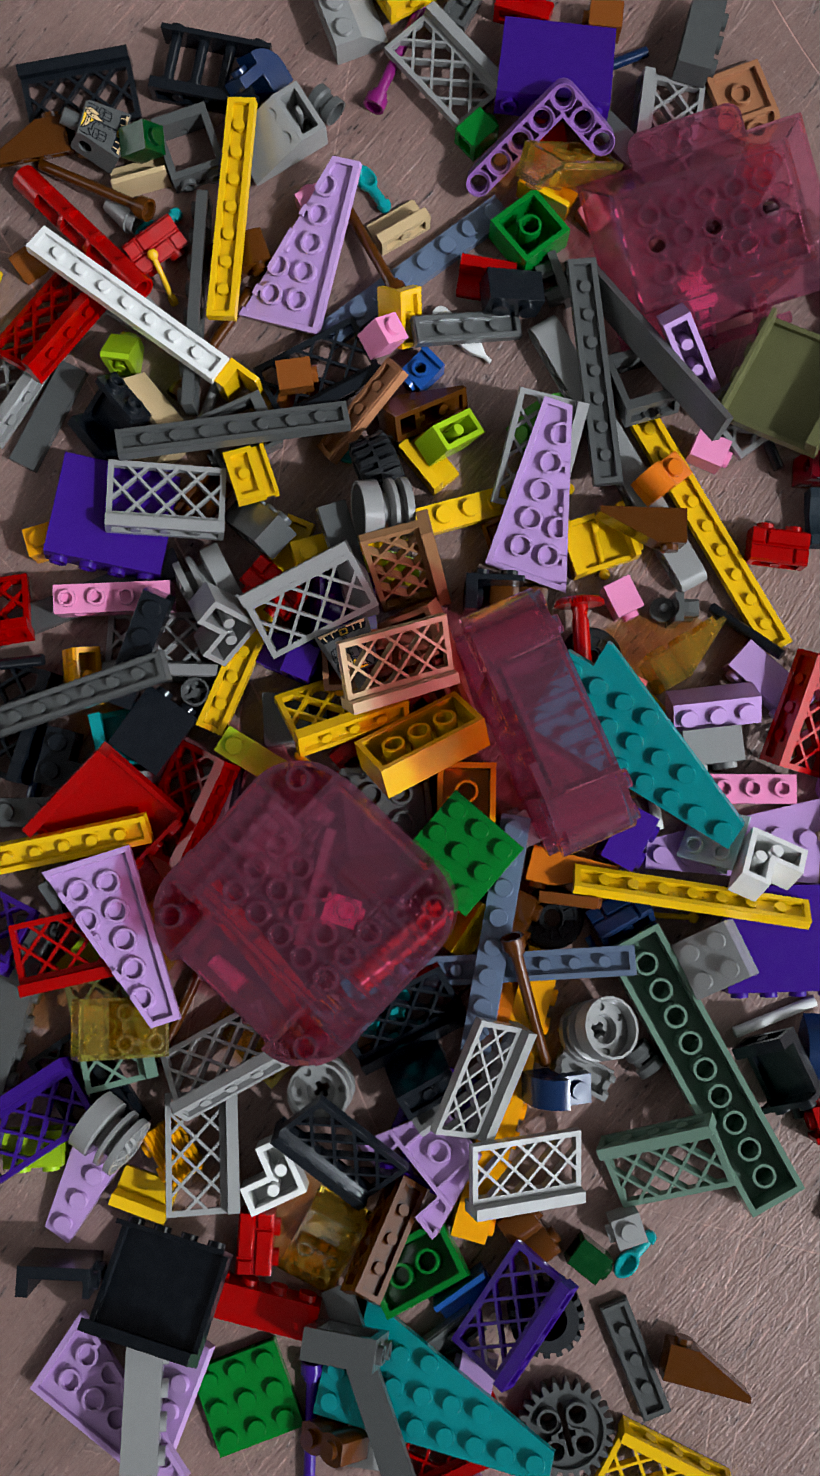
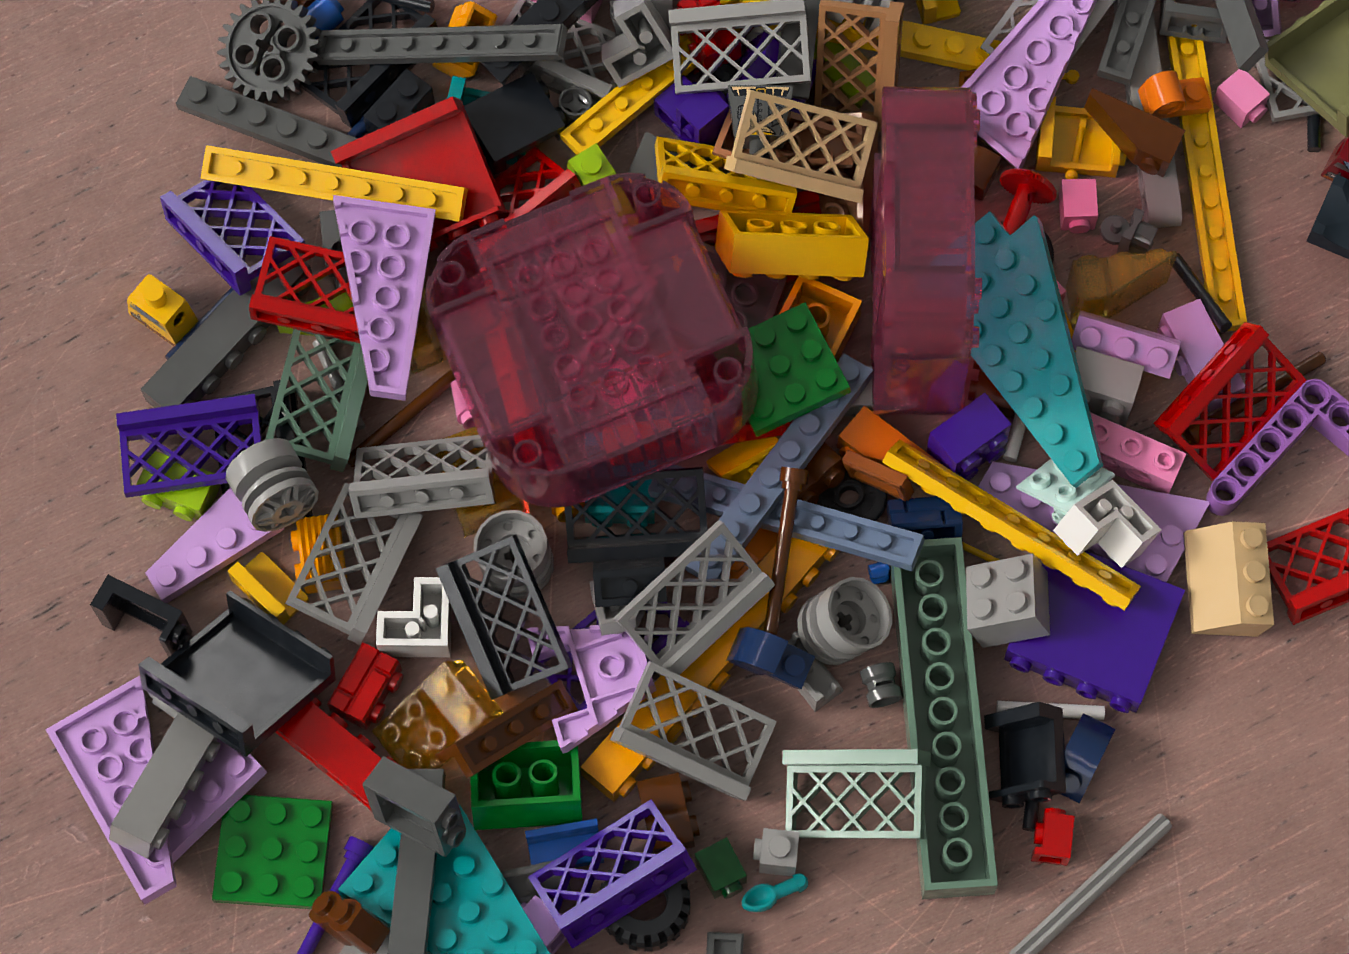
camera: 25 degrees right, 15 degrees down
(113, 1030) = (328, 388): clear yellow slope -> none
(777, 547) = (1273, 224): red brick -> none

